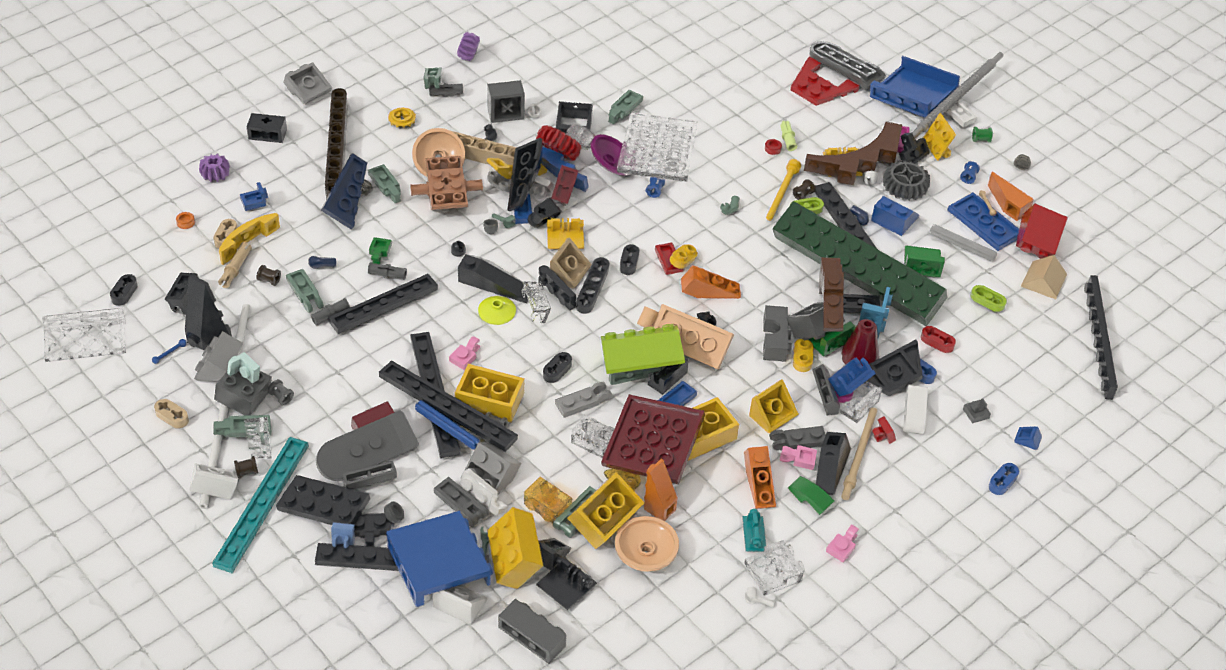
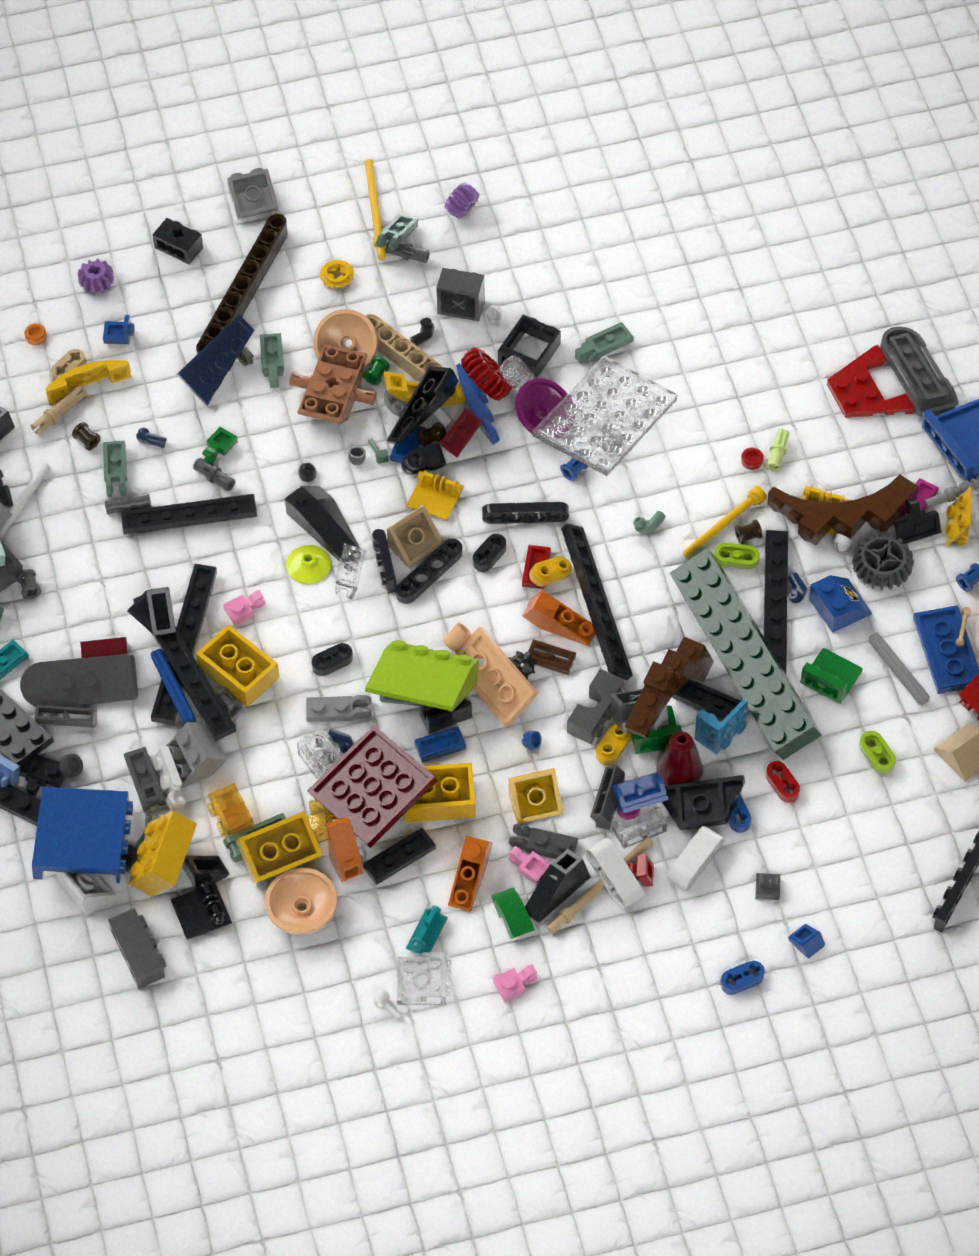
camera: 30 degrees right, 10 degrees up
(405, 371) = (155, 611): none -> black slope
(419, 87) = (374, 207): none -> yellow bar
(471, 165) = (376, 371): none -> green bush
(534, 196) = (431, 433): none -> dark brown bush
(604, 418) = (344, 740): none -> dark blue arm
(621, 230) = (524, 512): none -> black beam
(698, 485) = (399, 856): none -> black plate
(724, 262) = (596, 601): none -> black plate
(730, 315) = (549, 660): none -> reddish brown tile
(743, 371) = (532, 740): none -> blue hinge
(869, 438) = (614, 873): none -> white beam

